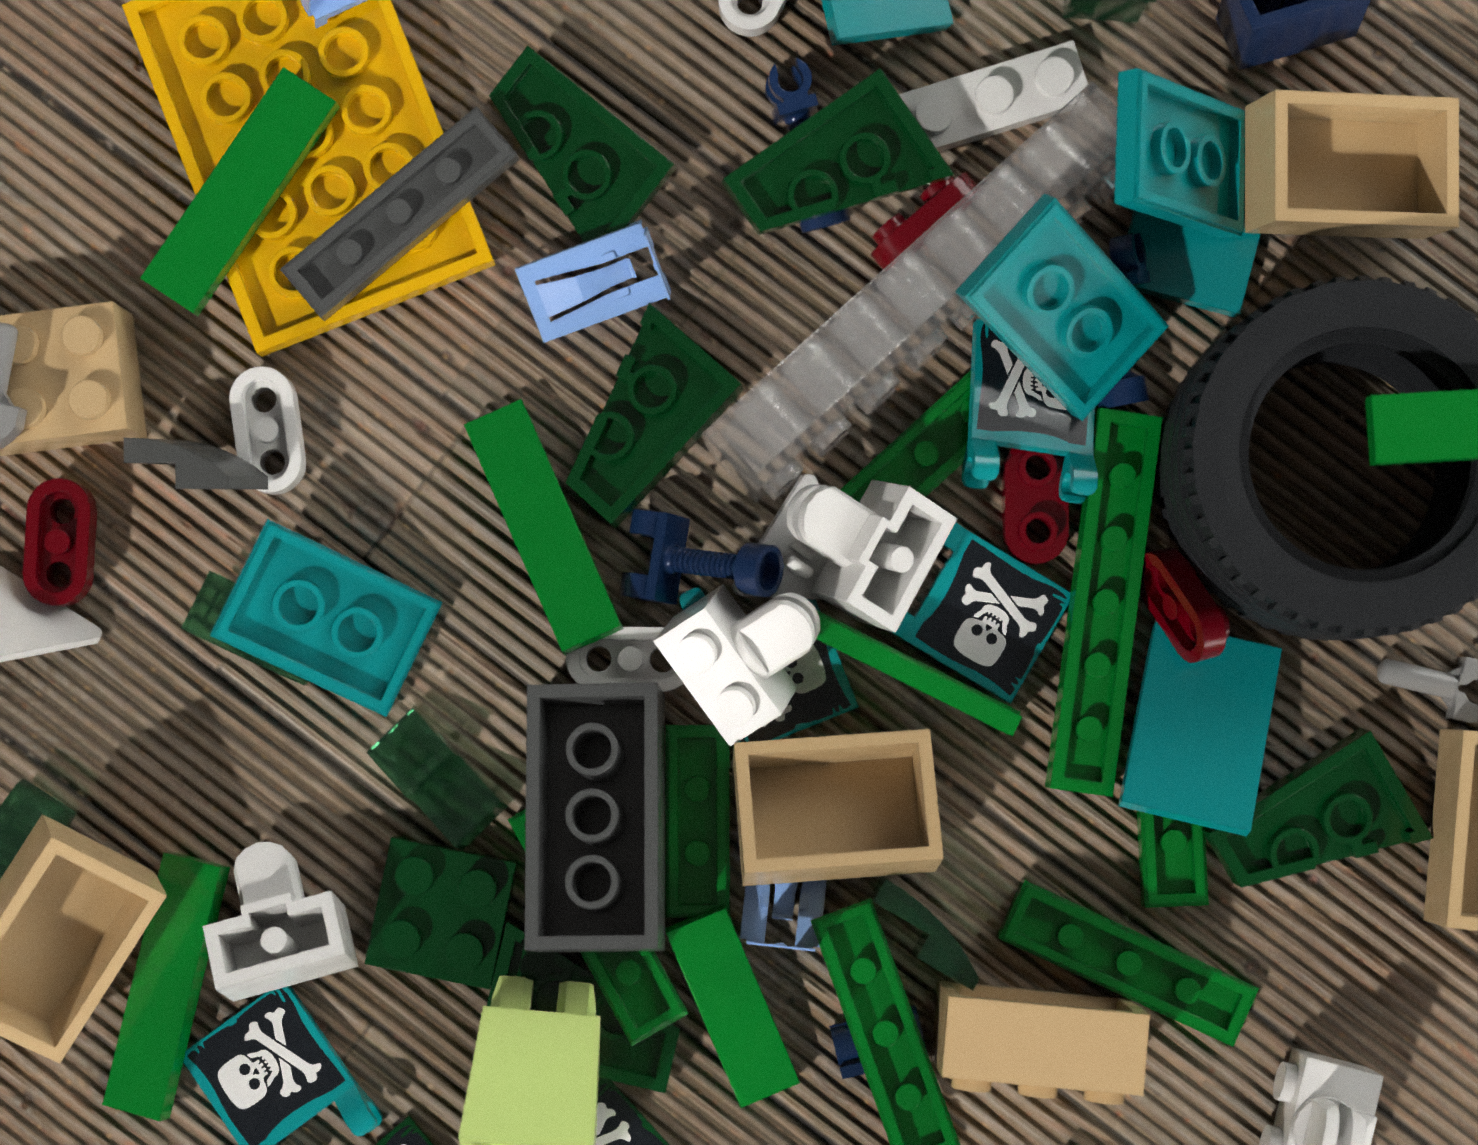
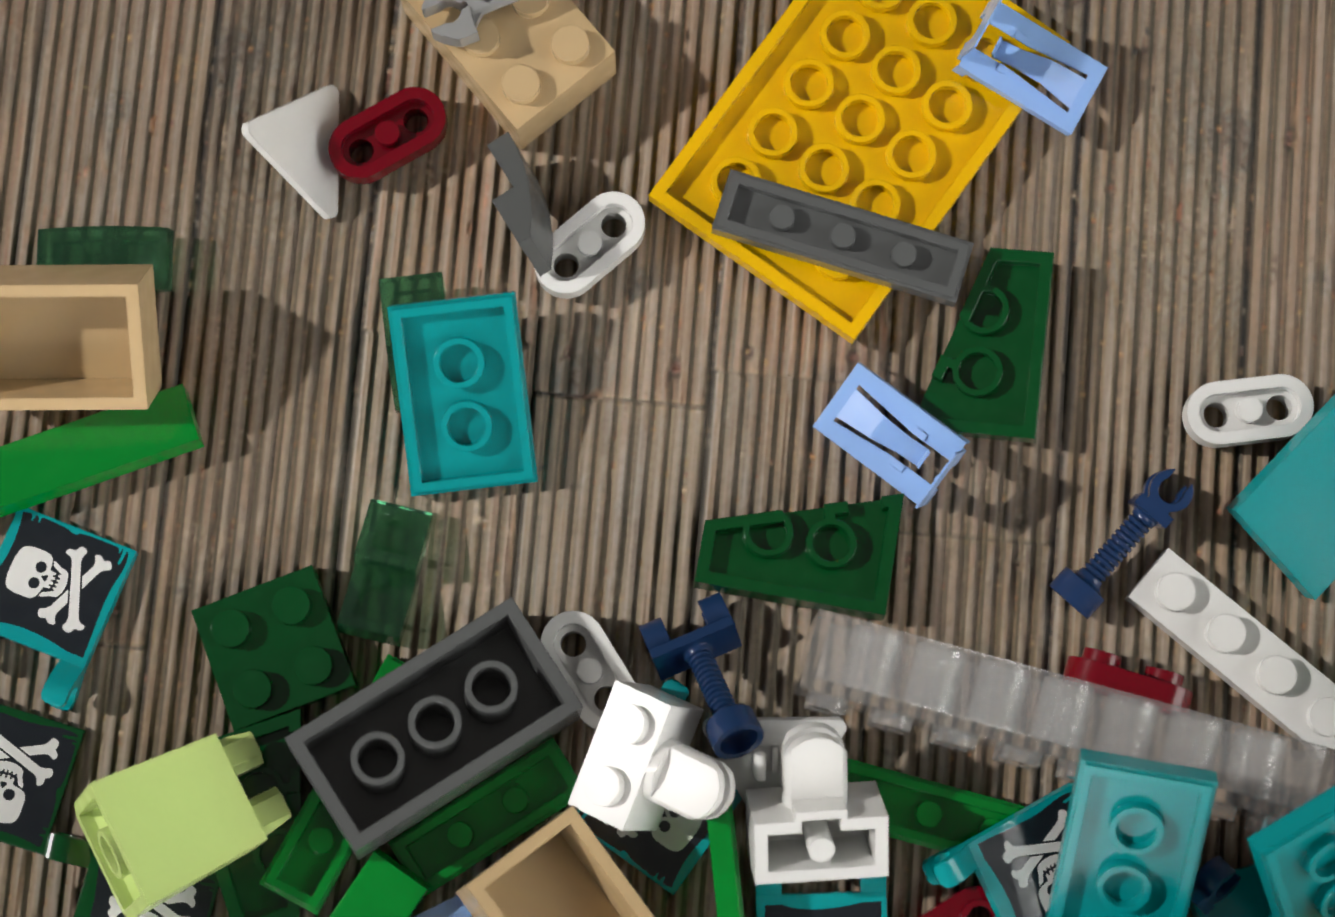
camera: 55 degrees right, 5 degrees down
(240, 191) = (774, 96): green tile -> none
(280, 932) = (174, 522): white brick -> none
(543, 527) = (654, 526): green tile -> none
(838, 159) = (1130, 575): dark green wing -> none

